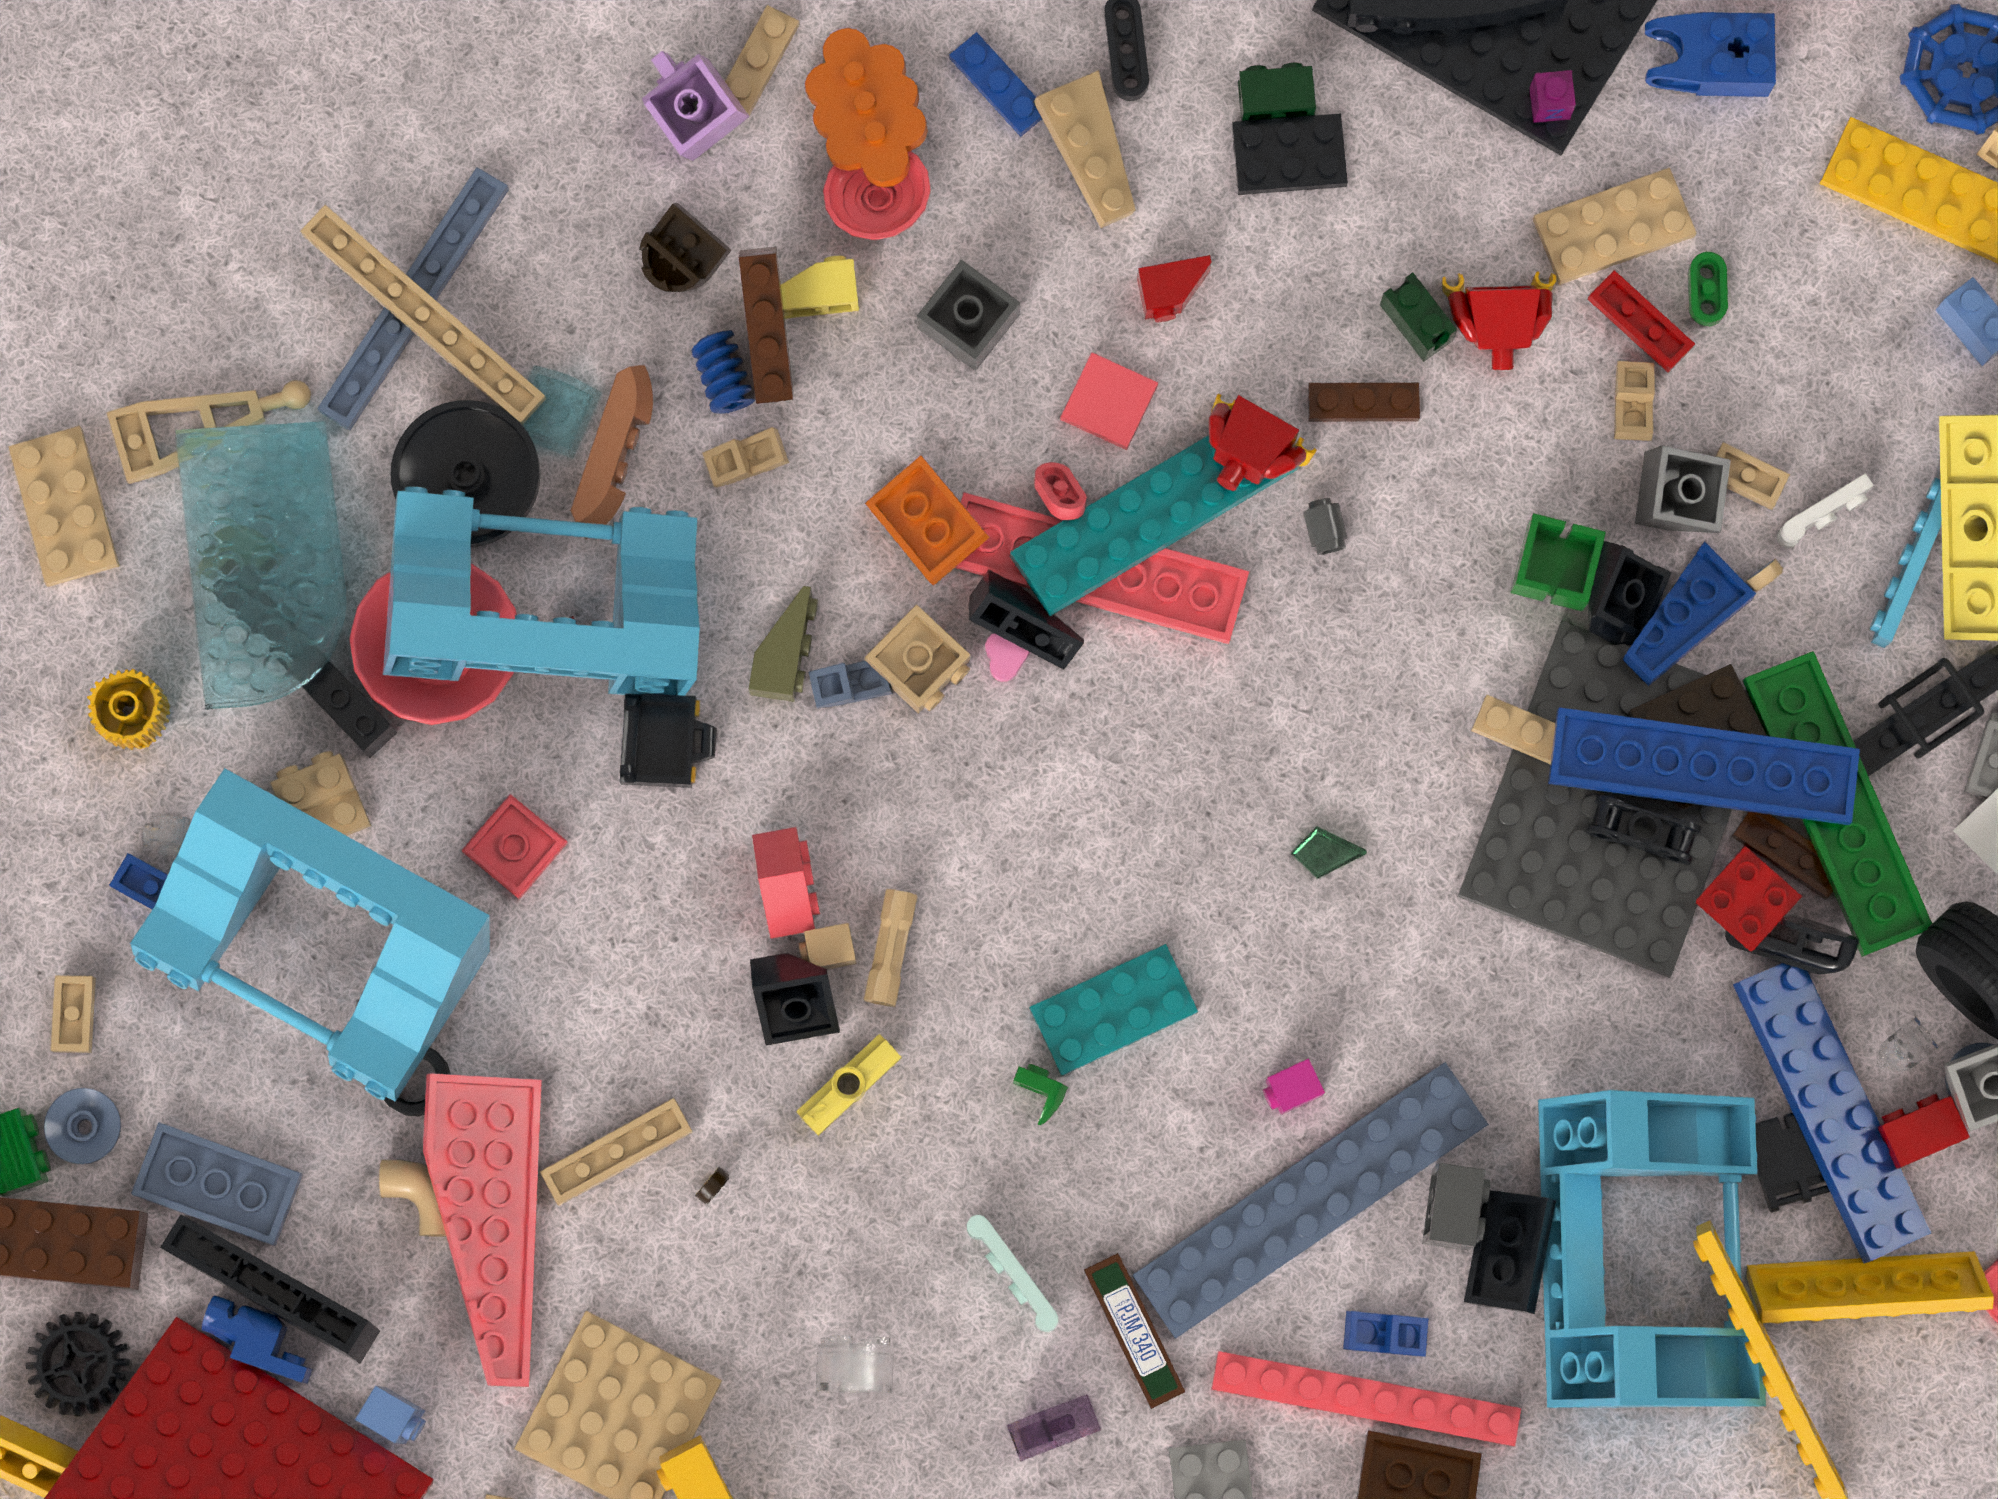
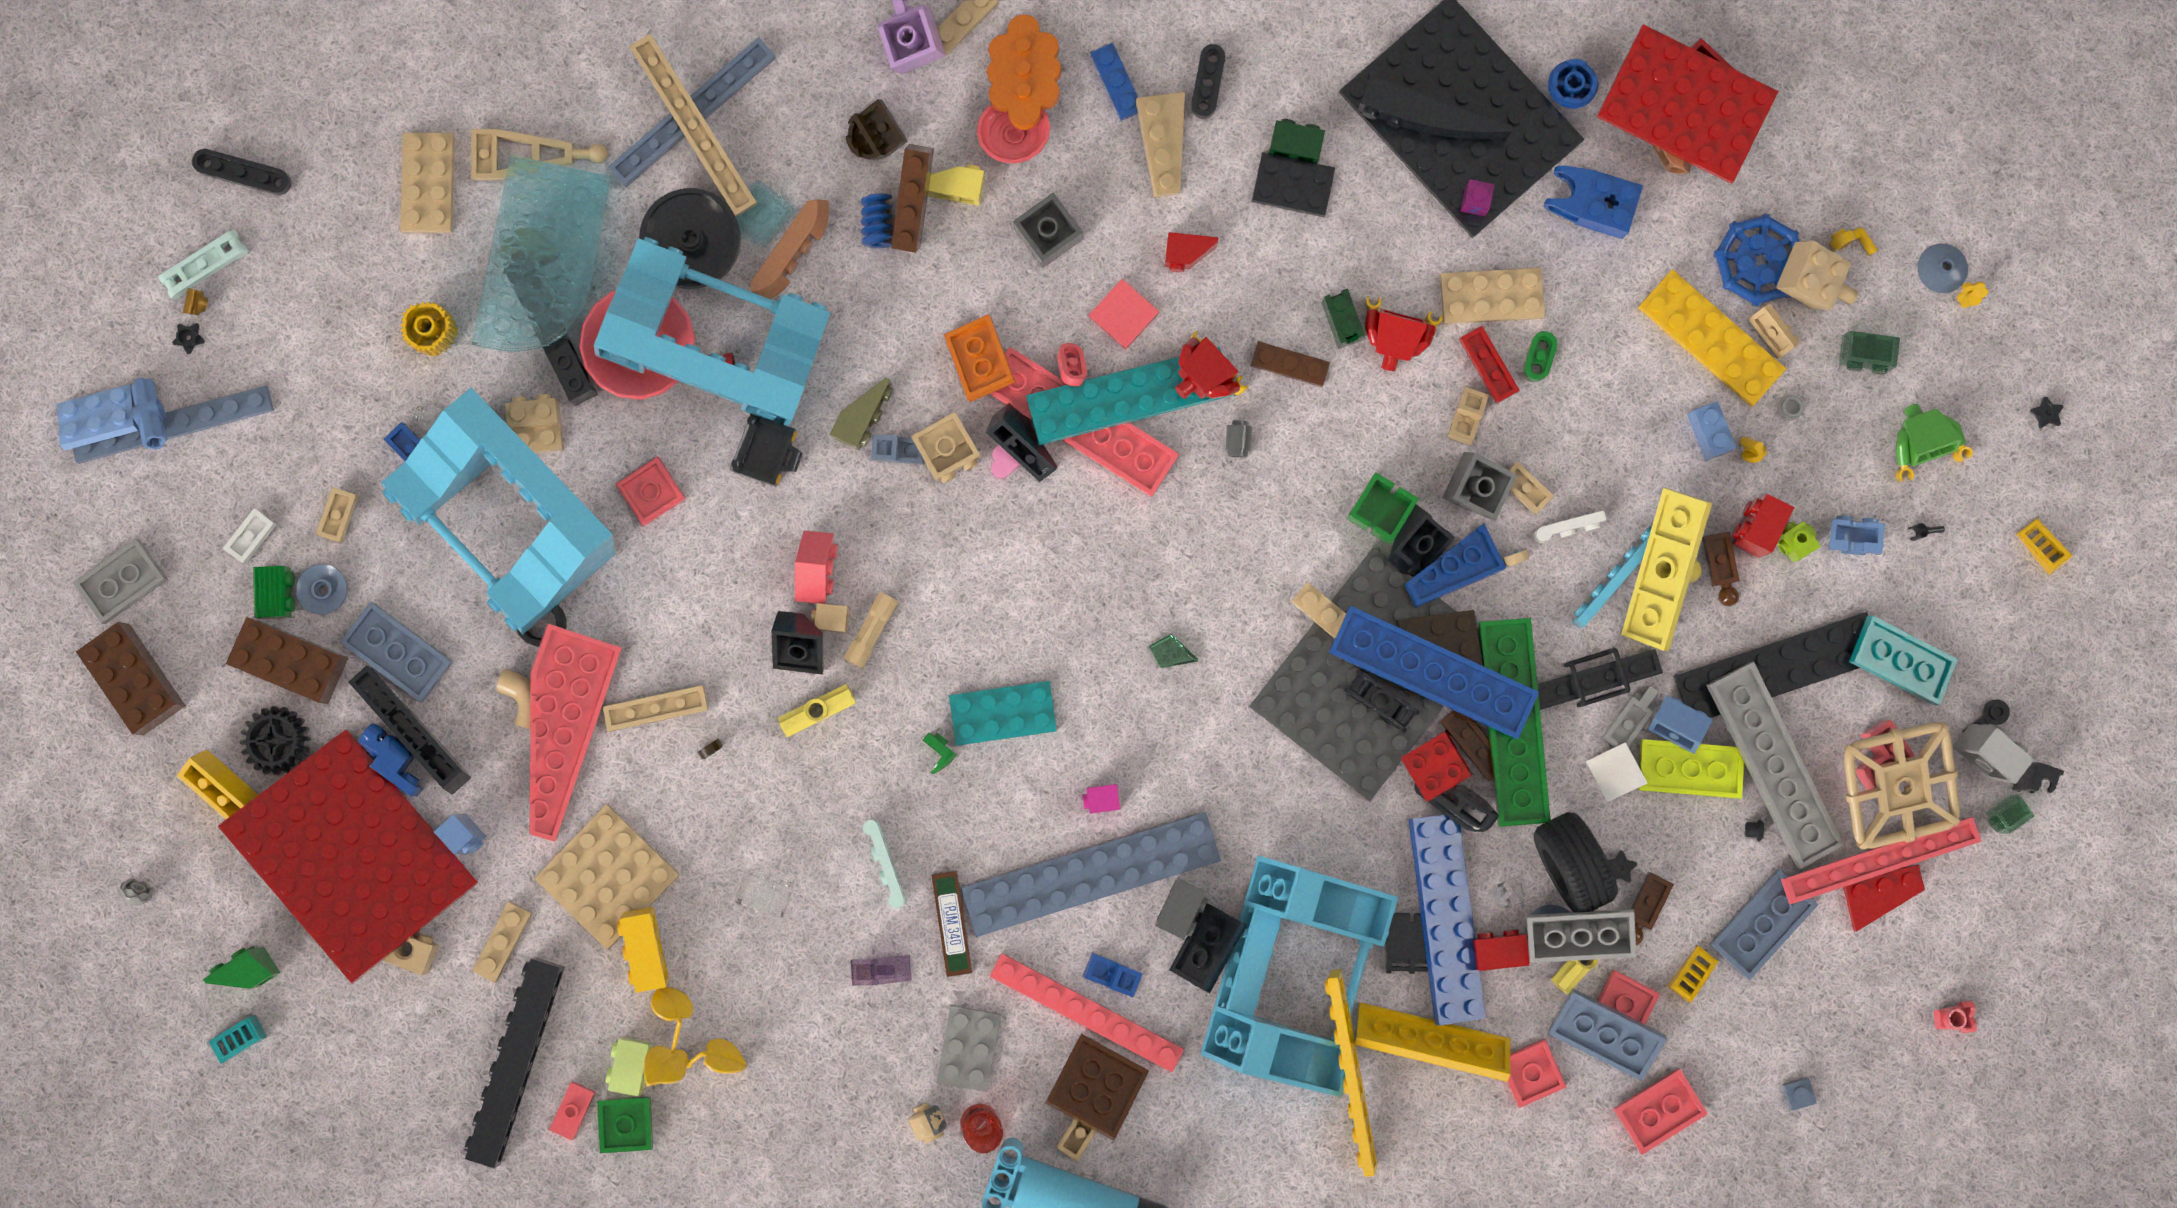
camera: 20 degrees right, 5 degrees up
(745, 458) = (875, 281): tan slope -> none

